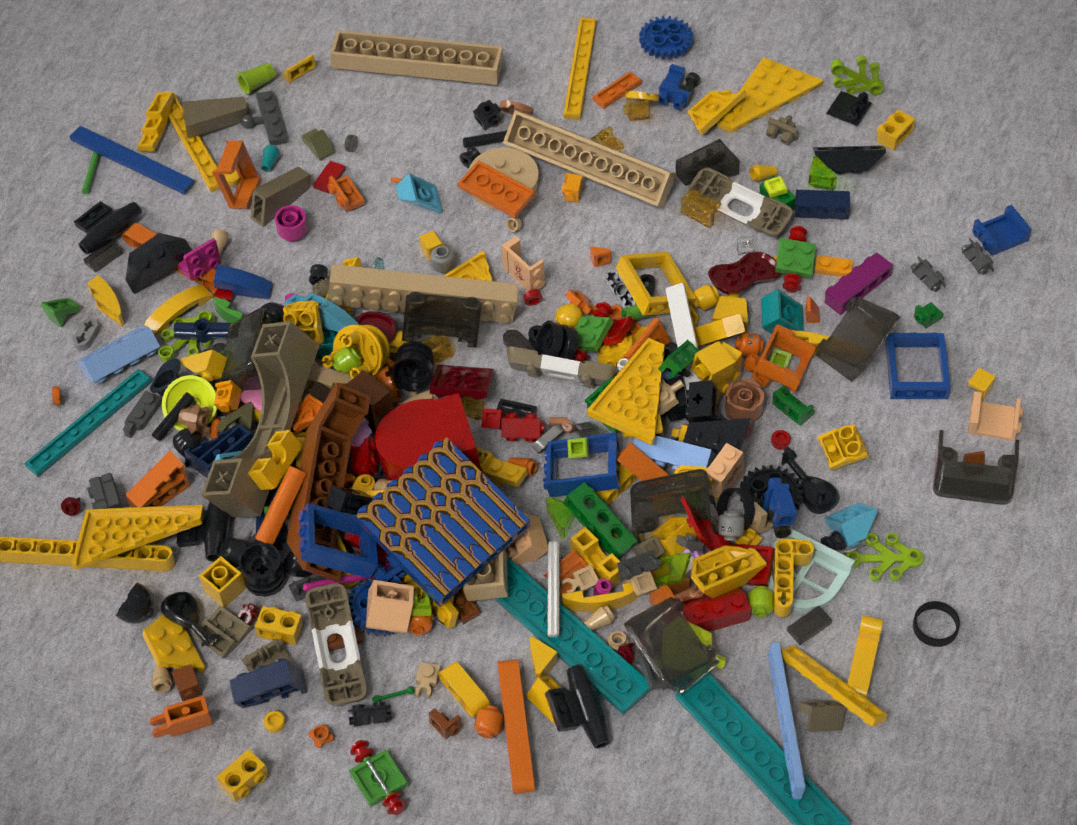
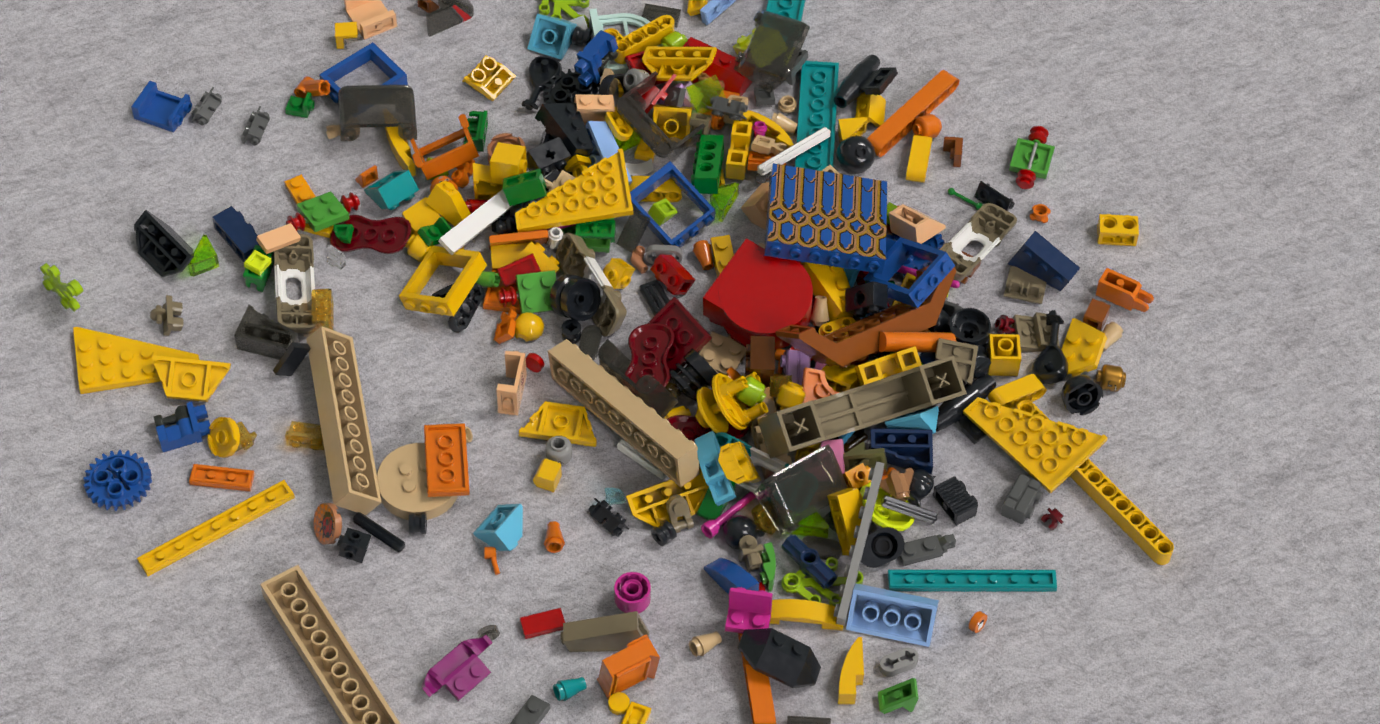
camera: 135 degrees left, 0 degrees up
(127, 643) = (1111, 378): none -> pearl gold head
(148, 453) = (955, 500): none -> black brick
(160, 484) = (977, 466): orange wedge -> none
(177, 355) = (856, 550): none -> light grey plate
(184, 565) = (1022, 389): none -> yellow beam
(242, 525) = (964, 354): none -> dark tan wing
(244, 300) = (750, 552): none -> dark tan hips
(274, 721) = (1062, 246): yellow tile -> none
(278, 628) = (993, 297): yellow brick -> none
(318, 143) = (512, 667): olive slope -> none
(322, 390) = (790, 395): none -> yellow head
(343, 113) = (459, 669): none -> magenta plate
(345, 193) = (553, 586): orange bracket -> none
(366, 256) = (614, 522): none -> black hinge
(381, 218) = (554, 540): none -> orange cone
(426, 677) = (931, 190): tan plate -> none
(462, 355) = (649, 352): none -> dark red plate
(492, 419) = (685, 299): red plate -> none
(509, 637) = (855, 154): none -> black cylinder
(559, 399) = (618, 273): none -> yellow brick
(572, 187) = (383, 419): light orange brick -> none
(600, 256) = (444, 346): orange slope -> none
(626, 652) = (792, 90): dark red plate -> none
(640, 463) = (638, 165): orange slope -> none
(669, 161) = (291, 359): none -> black tile
(704, 302) = (432, 233): none -> green bracket
(762, 172) = (237, 300): yellow cone -> none
(763, 260) = (344, 232): none -> green tile
(780, 439) = (515, 123): red tile -> none
(784, 206) = (278, 238): none -> light nougat tile
(849, 107) = (97, 288): black hinge -> none
(858, 282) = (309, 161): magenta brick -> none
(895, 129) = (97, 237): yellow brick -> none
(935, 324) = (315, 87): none -> orange piece

